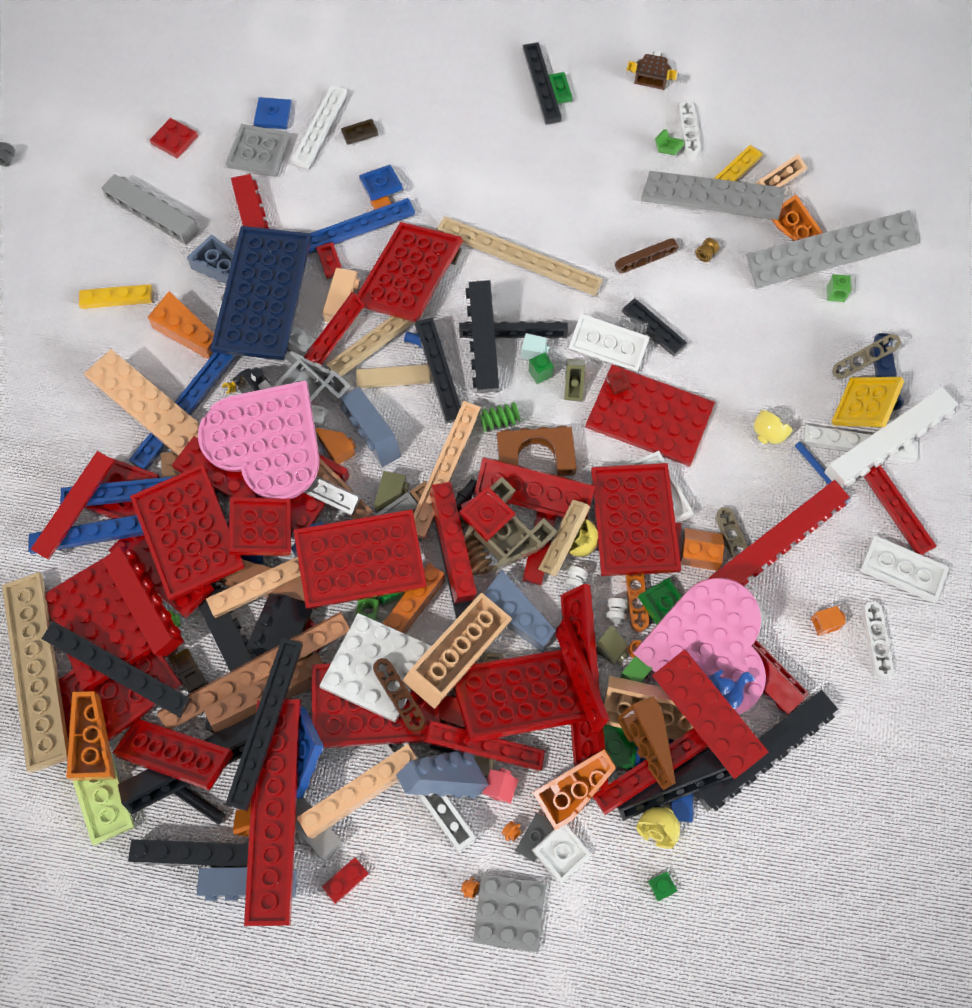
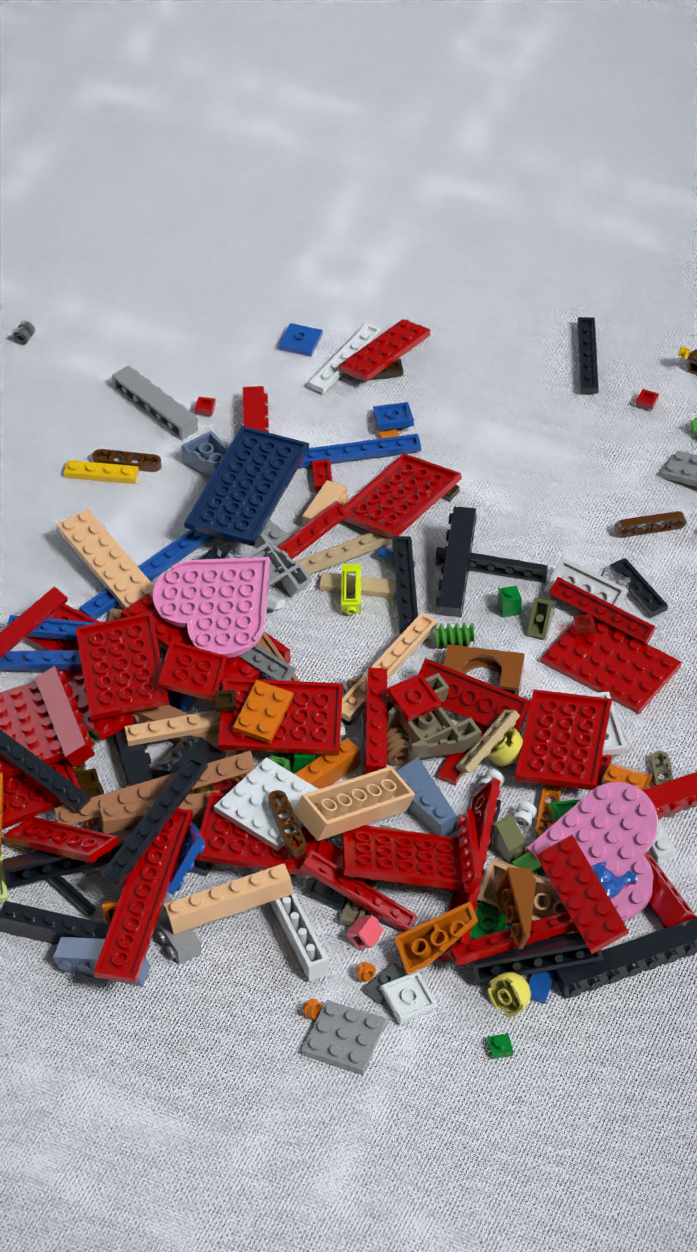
camera: 15 degrees right, 20 degrees down
(137, 277) = (127, 457): none -> reddish brown beam
(173, 138) = (194, 345): red plate -> none
(181, 325) = (159, 505): orange wedge -> none
(199, 203) = (205, 406): none -> red plate
(258, 150) = (277, 368): light grey plate -> none
(302, 559) = (225, 700): none -> dark brown plate
(336, 444) = (285, 629): orange slope -> none
(342, 561) = (263, 712): none -> orange plate
(345, 880) = (194, 981): red plate -> none
(354, 112) = (384, 350): none -> red plate
(370, 426) = (324, 621): sand blue wedge -> none
(390, 489) = (330, 672): olive slope -> none
(394, 403) = (351, 606): none -> neon yellow window
(443, 774) = (311, 901): sand blue wedge -> none
(522, 257) = (522, 505): tan plate -> none
(534, 346) = (508, 578): light aqua brick -> none
(560, 87) = (606, 362): green plate -> none
(608, 120) = (647, 399): none -> red plate
(630, 362) = (602, 610): none -> red plate

